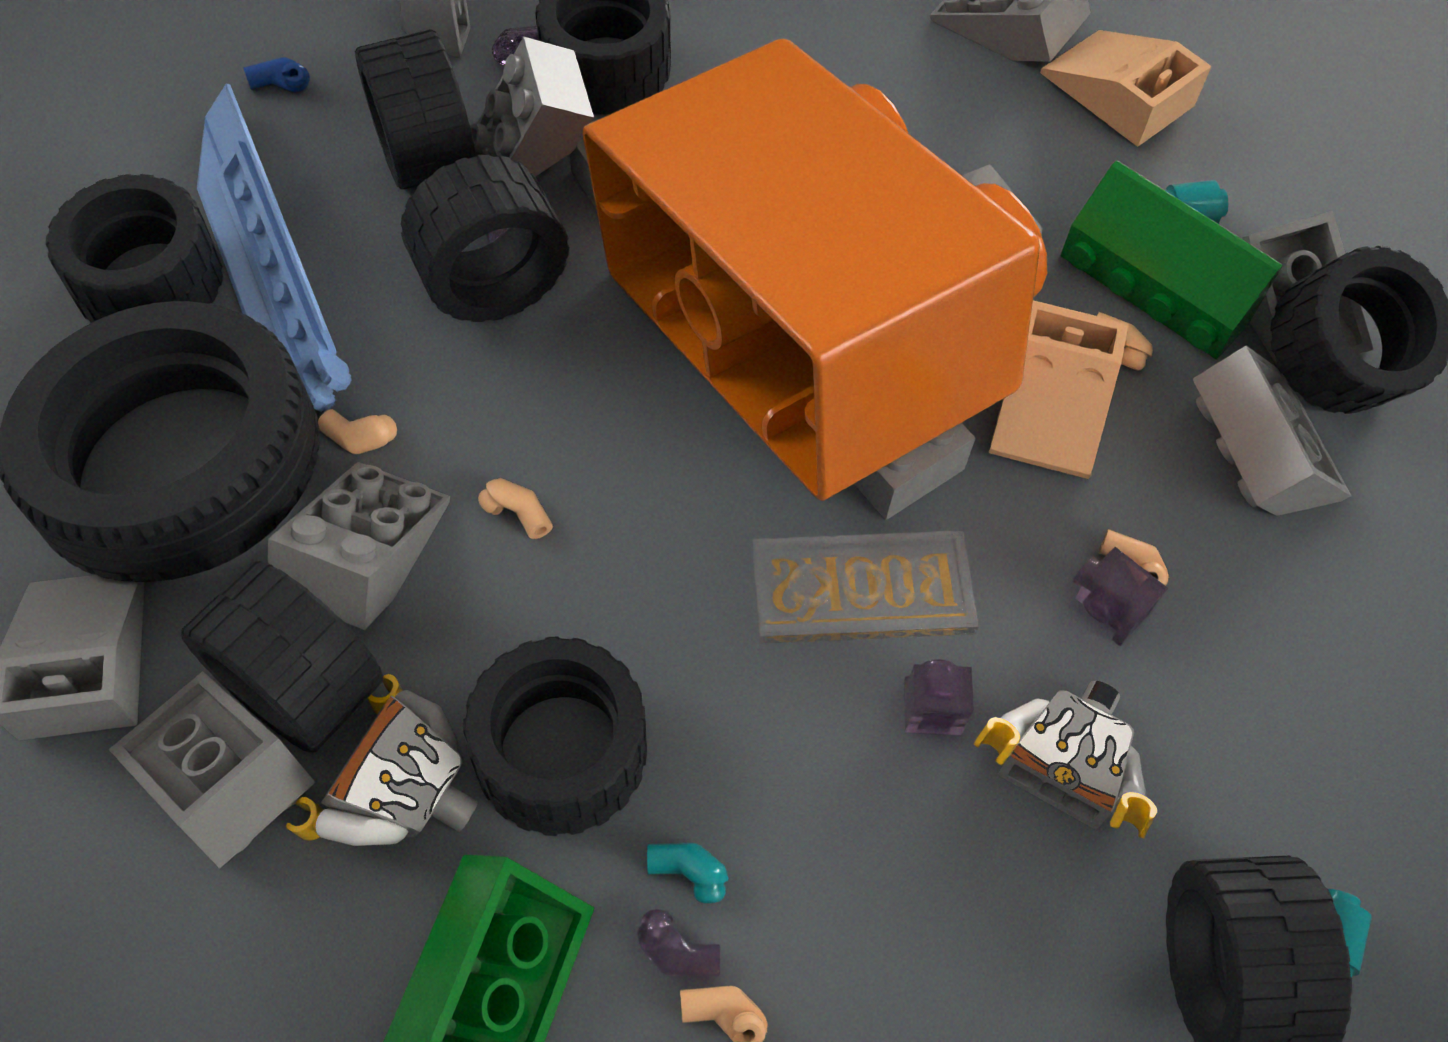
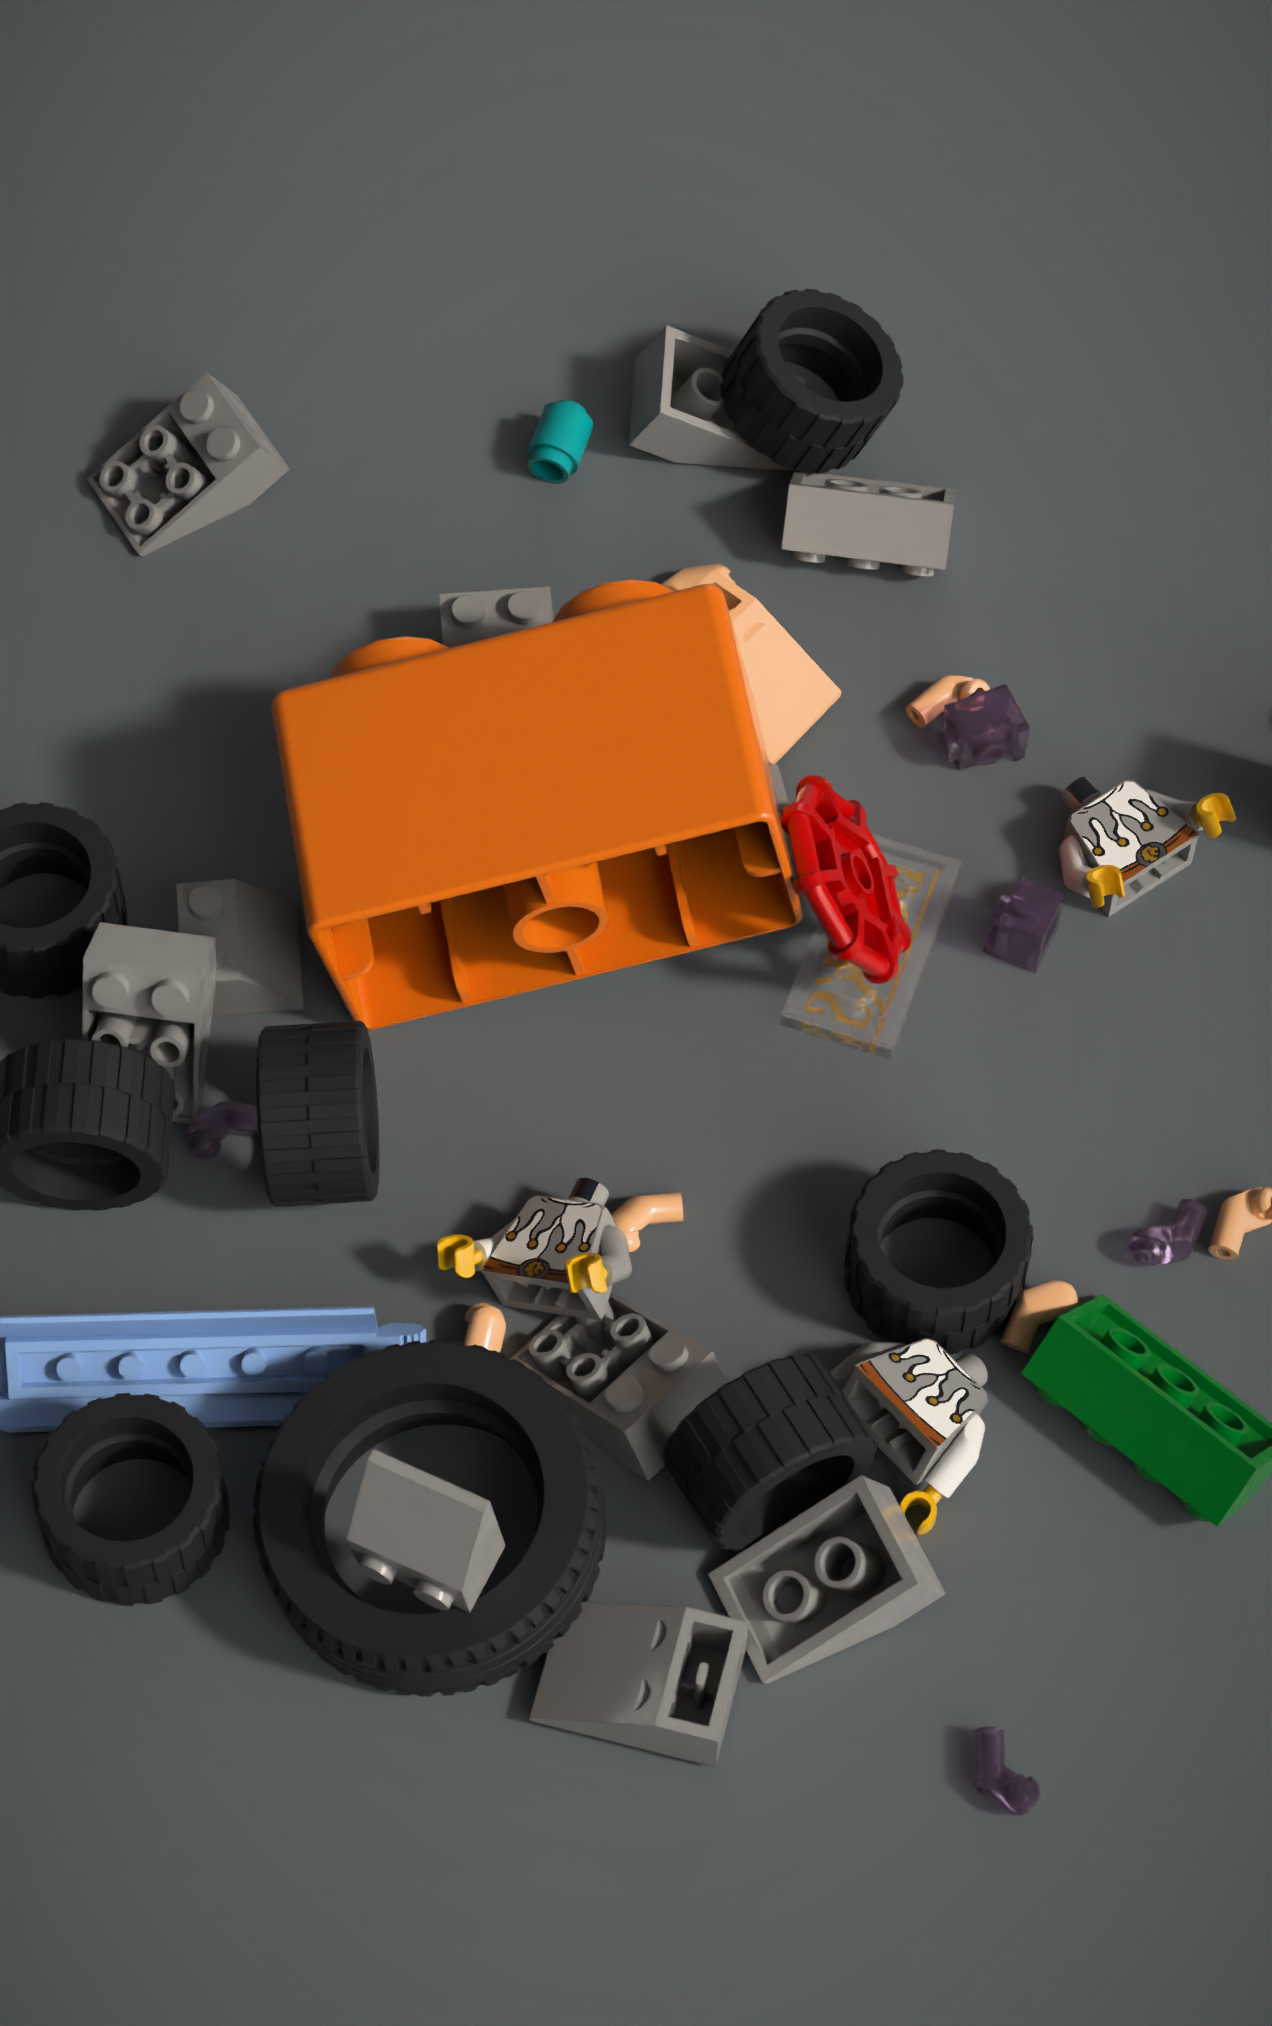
camera: 65 degrees left, 0 degrees up
(51, 984) = (997, 1782): none -> clear purple arm
(81, 405) = (423, 1533): none -> light grey slope
(438, 446) = (551, 1256): none -> torso
(549, 849) = (1036, 1307): none -> light nougat arm
(694, 863) = (1093, 1194): teal arm -> none
(853, 500) = (846, 879): none -> red plate
(1130, 81) = (358, 409): light nougat slope -> none
(1169, 260) = (635, 498): green slope -> none

